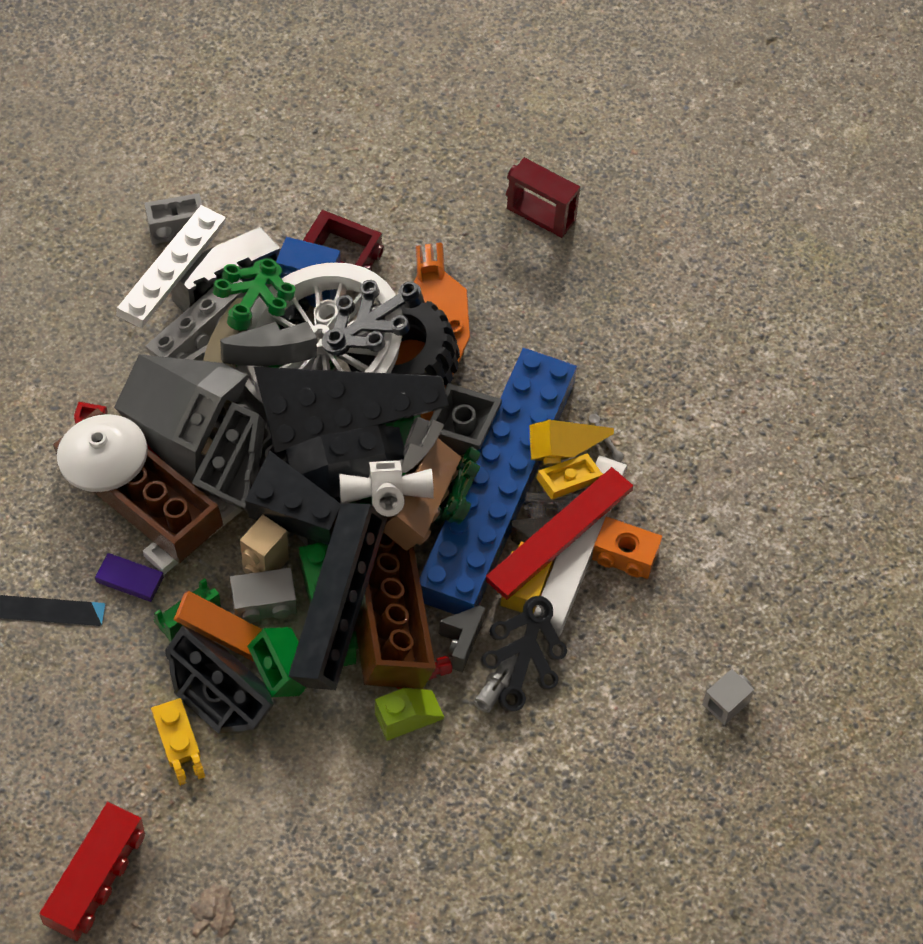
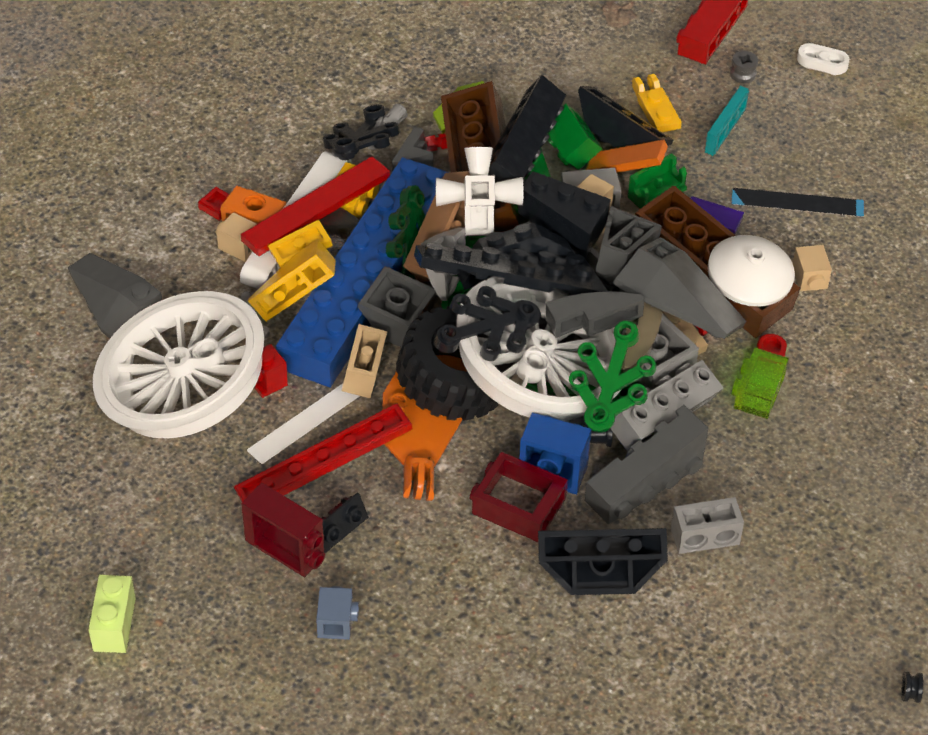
camera: 175 degrees left, 10 degrees down
(23, 105) = (912, 687): none -> black bush
(32, 502) = (811, 267): none -> tan brick
(65, 809) = (744, 67): none -> flat silver wheel
(96, 707) = (726, 120): none -> teal tile
(106, 368) = (760, 382): none -> clear neon green brick
(170, 267) = (702, 424): white plate -> none
(269, 197) = (602, 559): none -> black wedge
(490, 147) = (336, 612): none -> sand blue brick
(490, 364) = (364, 361): none -> tan brick
(492, 234) = (343, 520): none -> black hinge
(516, 275) = (330, 453): none -> red tile
(534, 334) = (301, 424): none -> white sticker
(585, 357) = (273, 372): none -> red brick
(640, 513) = (230, 233): none -> tan brick
(662, 341) = (172, 374): none -> white piece
(669, 573) = (212, 202): none -> red tile
(671, 139) = (112, 613): none -> yellowish green brick
(728, 696) = (188, 107): light grey brick -> none
(747, 447) = (111, 291): none -> dark grey wedge

